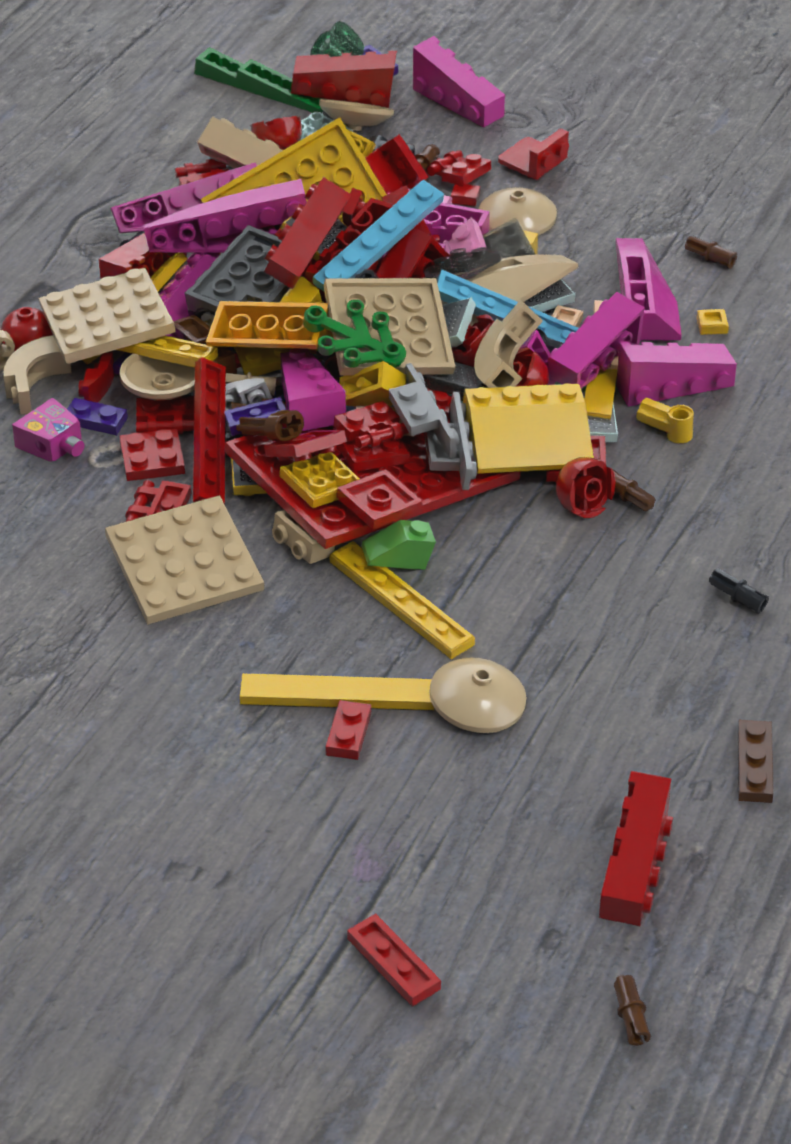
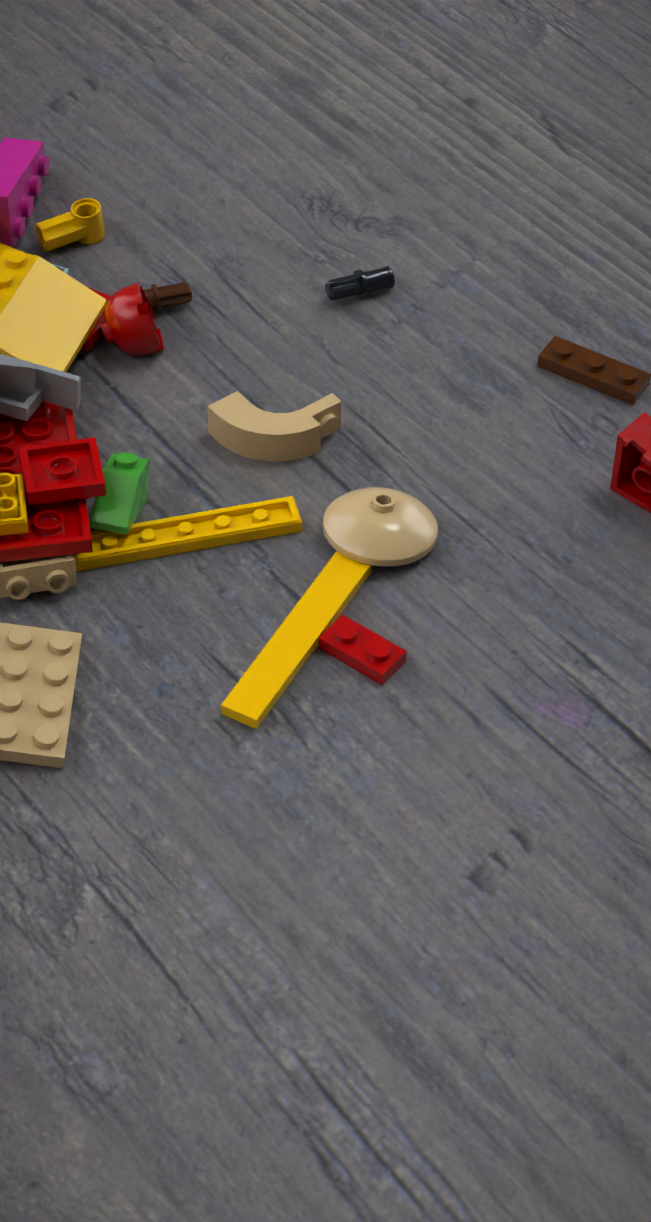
camera: 65 degrees left, 5 degrees up
(533, 610) = (271, 435): none -> tan arch

